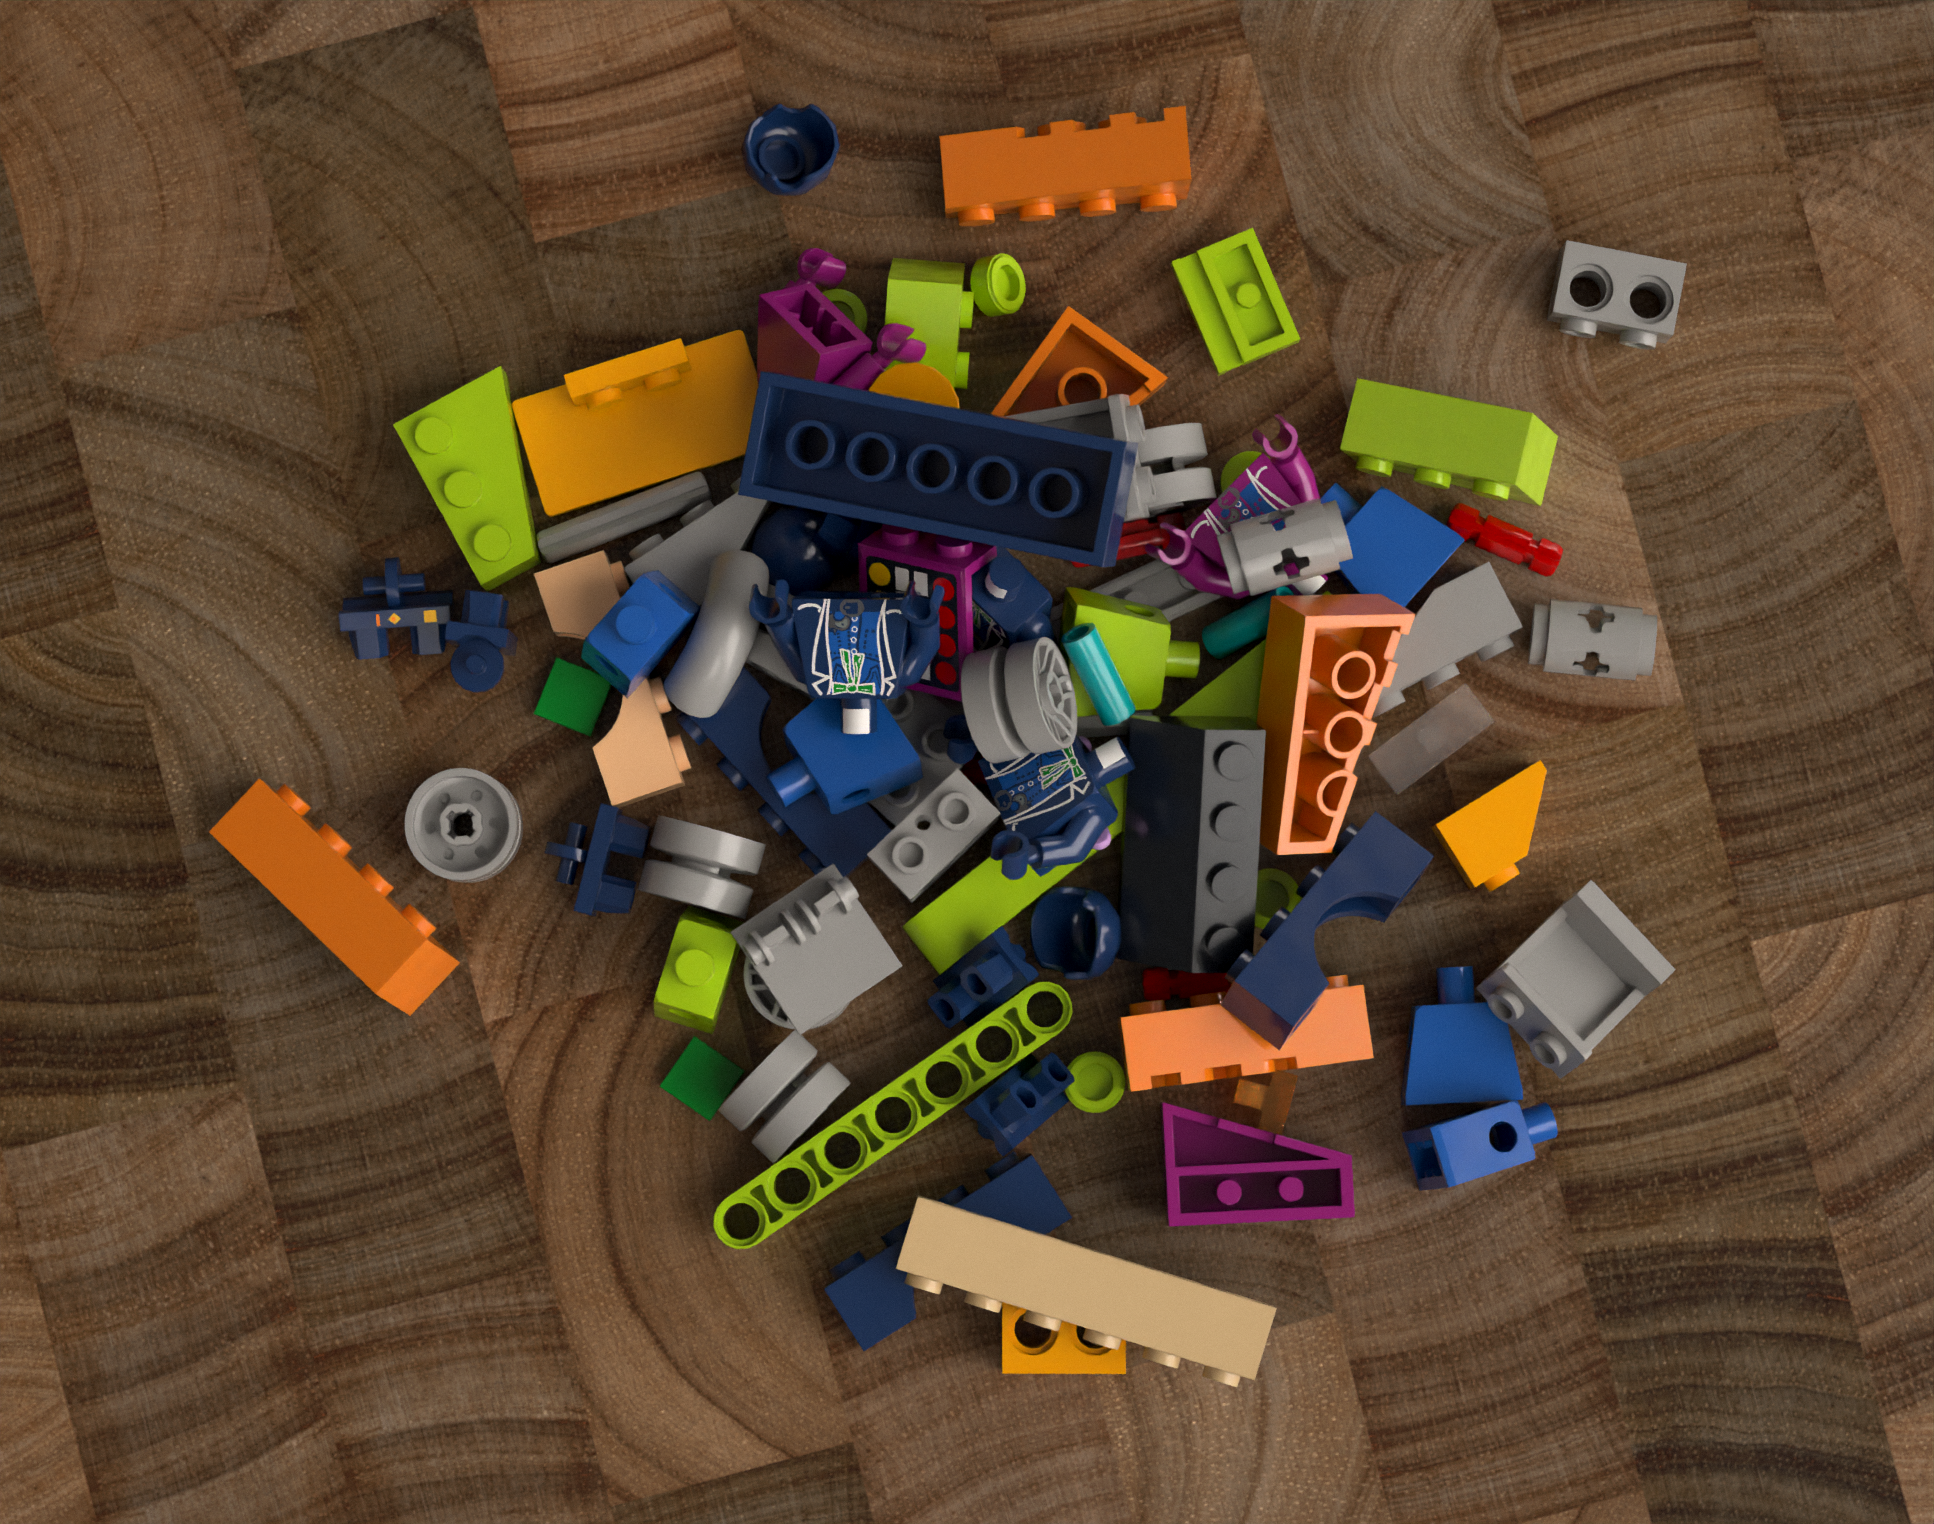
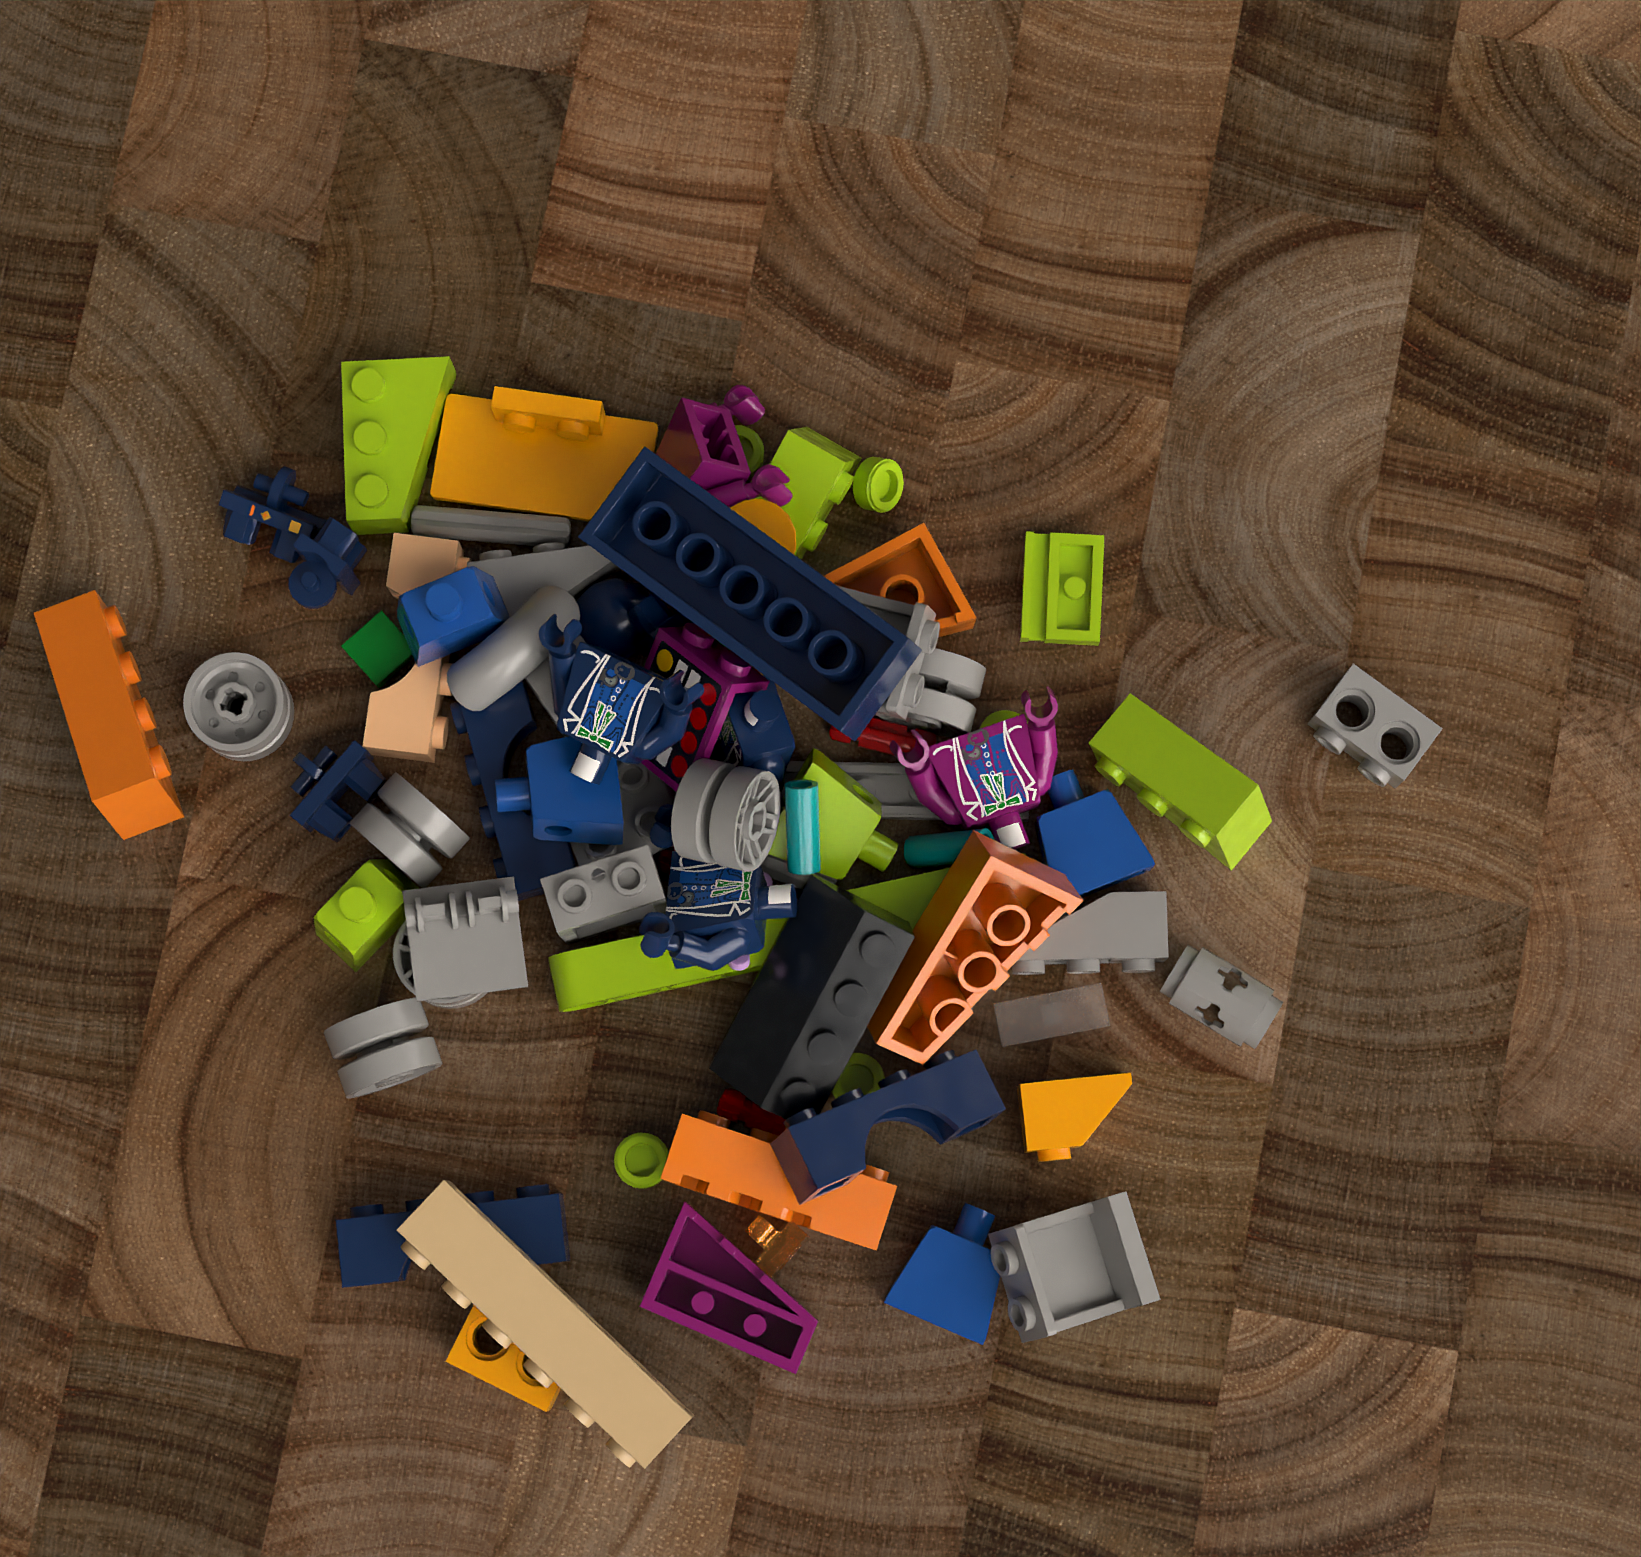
camera: 25 degrees right, 5 degrees down
(702, 1078) = (327, 1001): green tile -> none
(790, 149) = (765, 300): dark blue hair -> none
(862, 1121) = (437, 1105): lime beam -> none
(981, 980) = (589, 1032): dark blue hips -> none
(1021, 1101) = (572, 1145): dark blue hips -> none
(1066, 168) = (977, 417): orange wedge -> none
(1075, 932) = (685, 1030): dark blue hair -> none
(1312, 540) = (975, 798): light grey piece -> none
(1460, 1146) = (910, 1362): blue torso -> none
(1505, 540) = (1189, 883): red axle -> none

